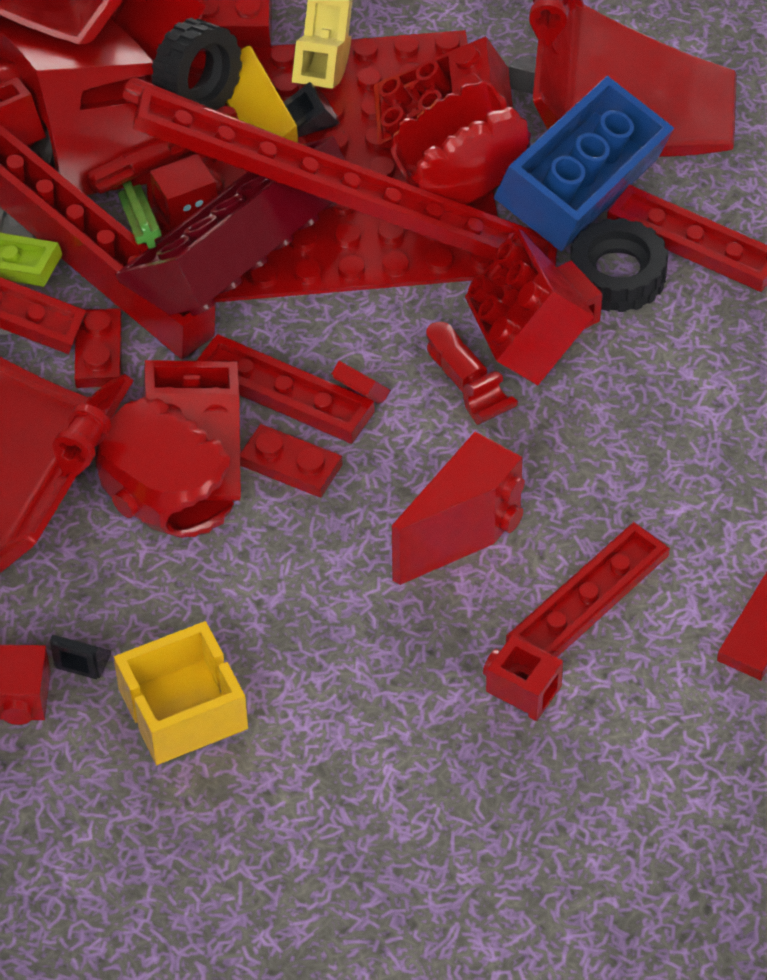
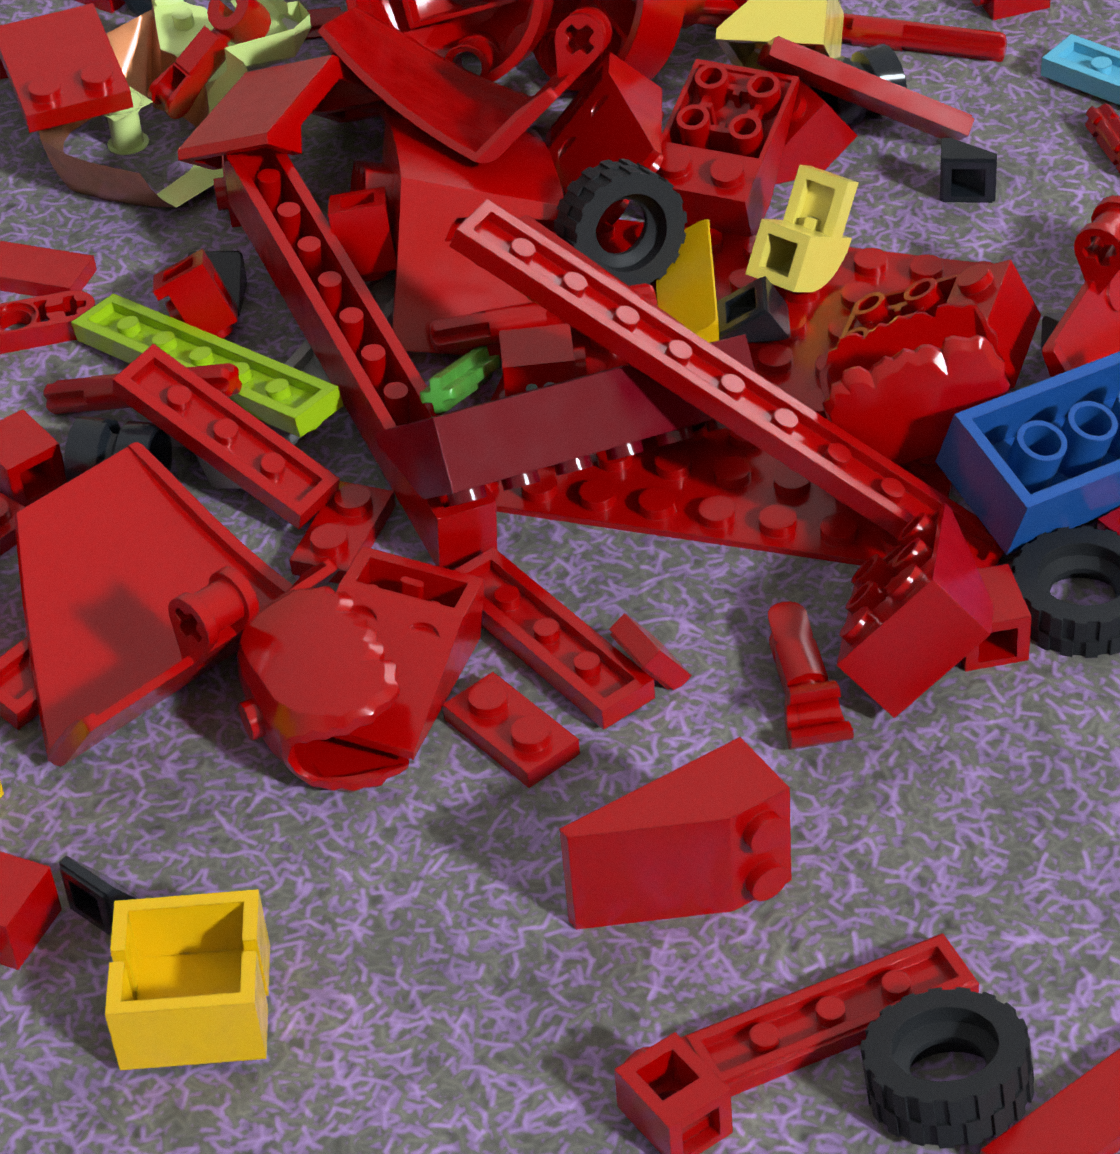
camera: 25 degrees right, 10 degrees down
(678, 576) = (955, 1109): none -> black tyre

